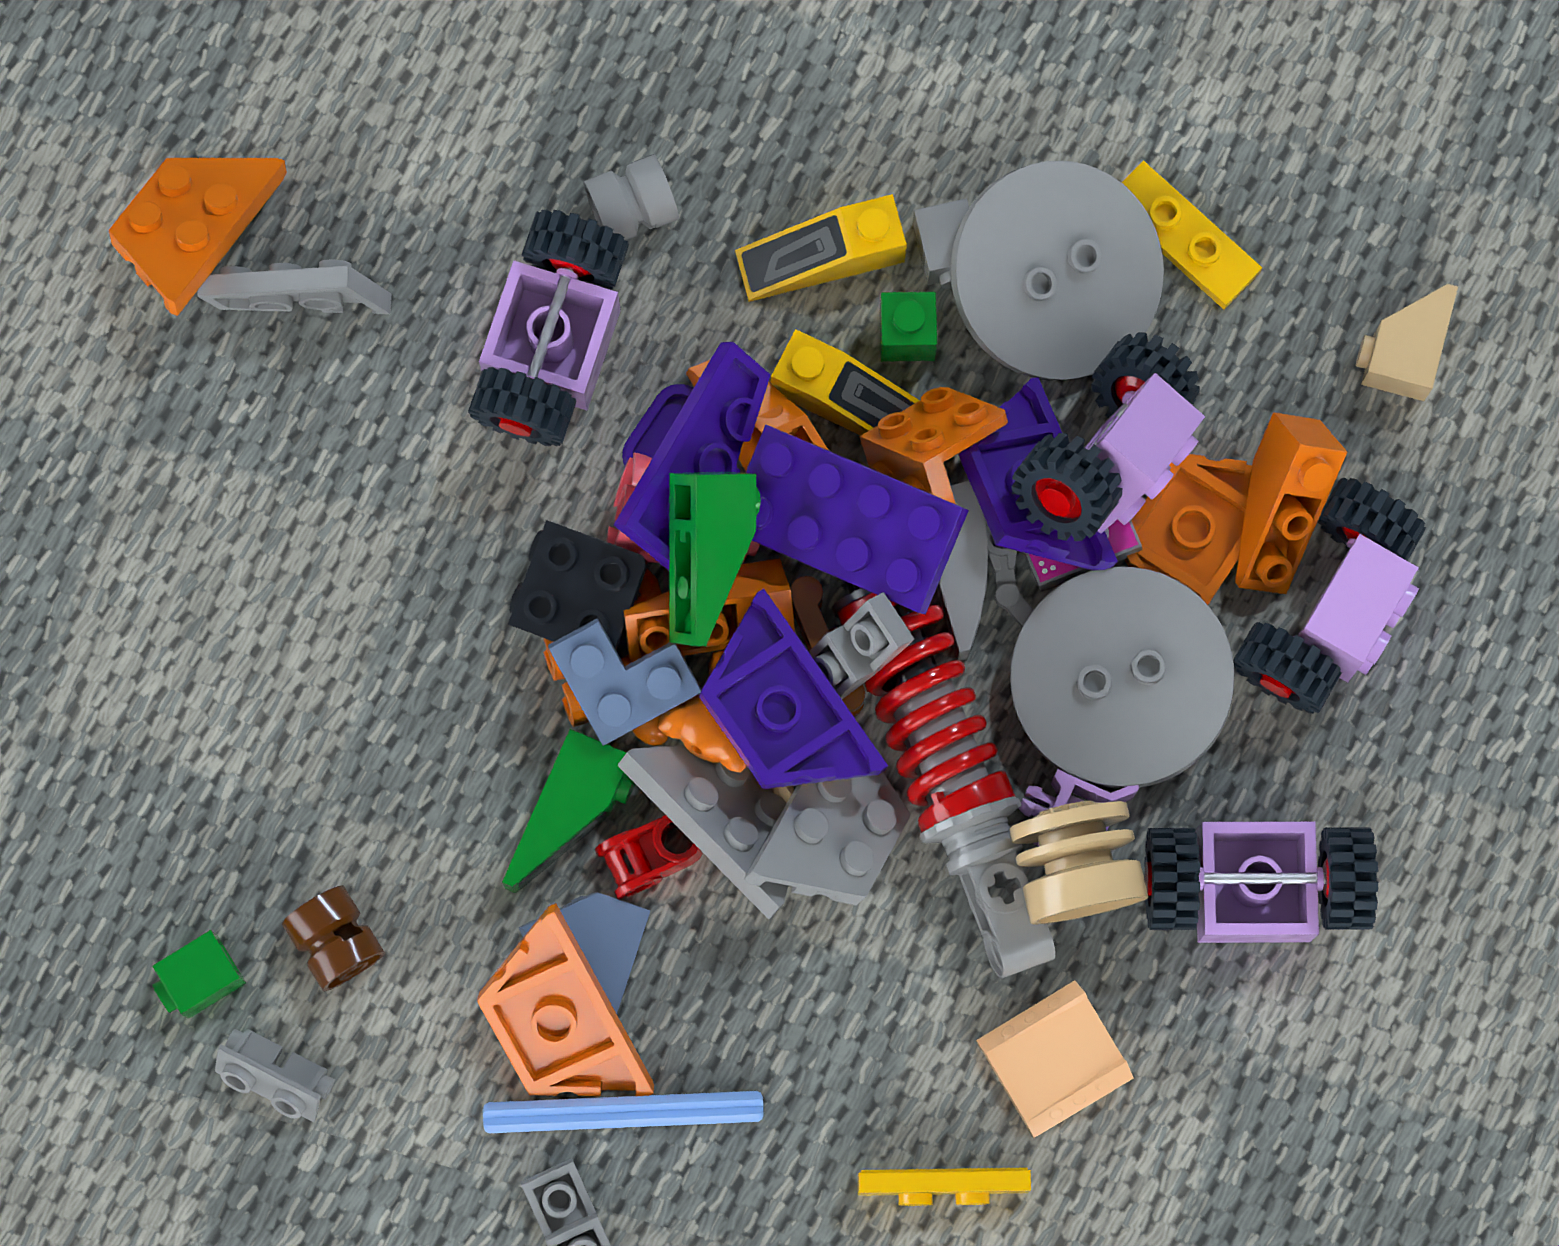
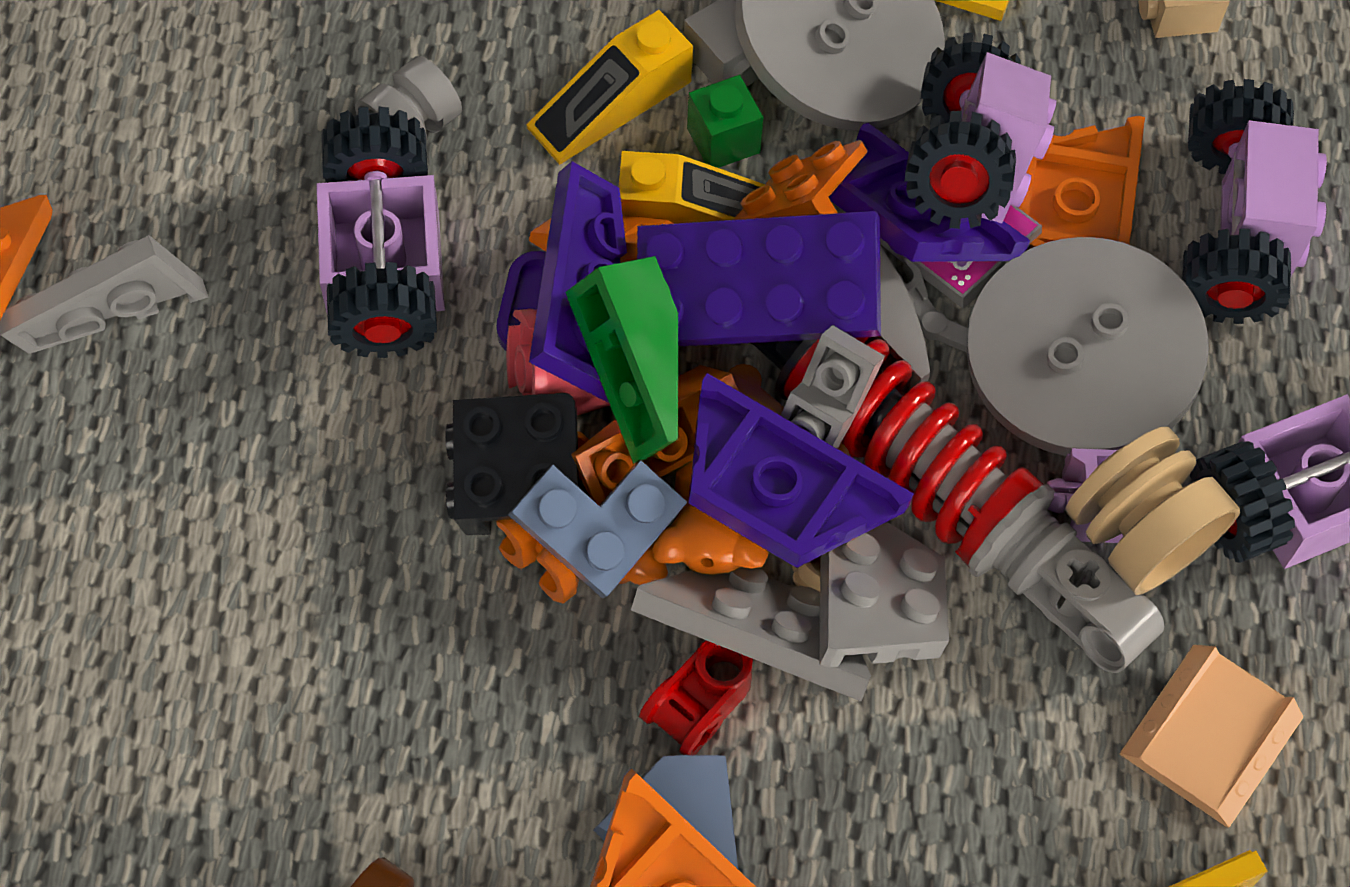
camera: 25 degrees left, 15 degrees down
(571, 805) = (597, 677): green slope -> none
(1285, 499) = (1153, 132): orange slope -> none

